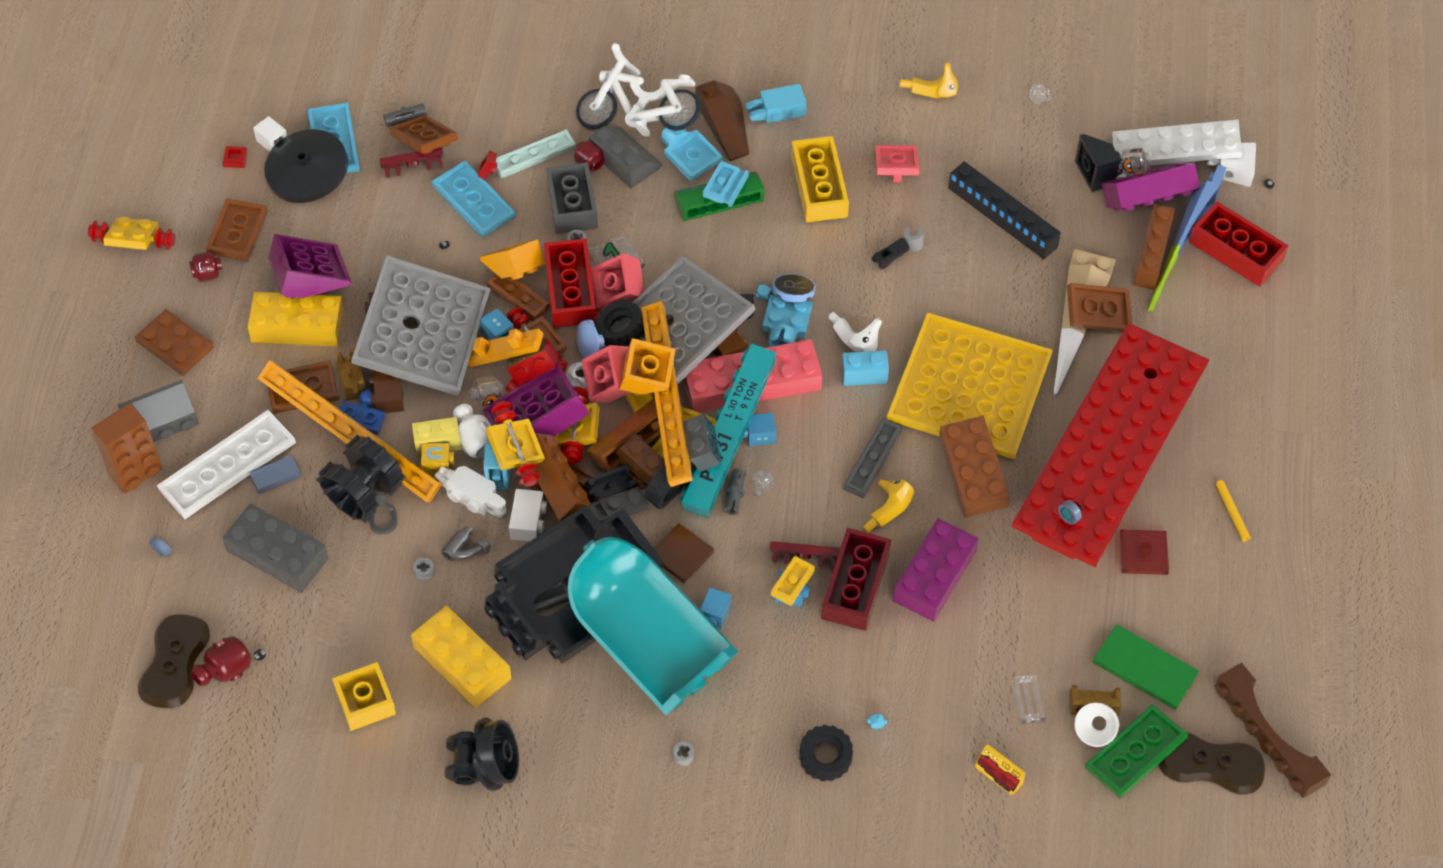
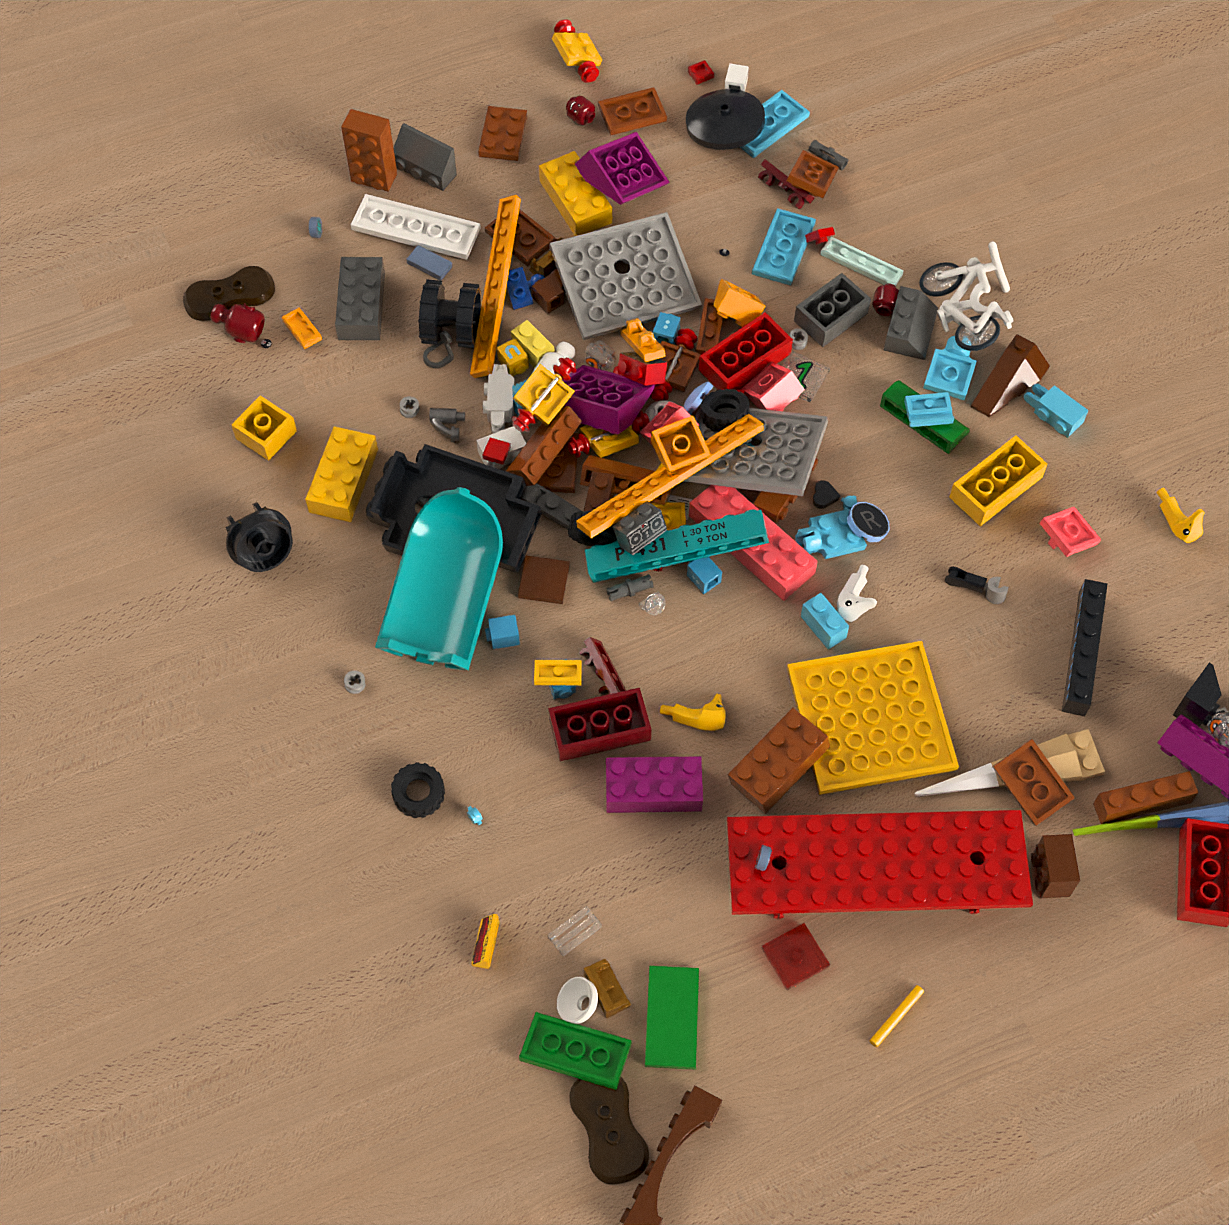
camera: 60 degrees right, 5 degrees up
(268, 614) = (301, 328): none -> light orange plate
(534, 516) = (496, 451): none -> red tile
(608, 484) = (566, 488): black hinge -> none
(873, 458) = (740, 677): dark grey tile -> none
(1181, 327) = (1055, 866): none -> reddish brown brick

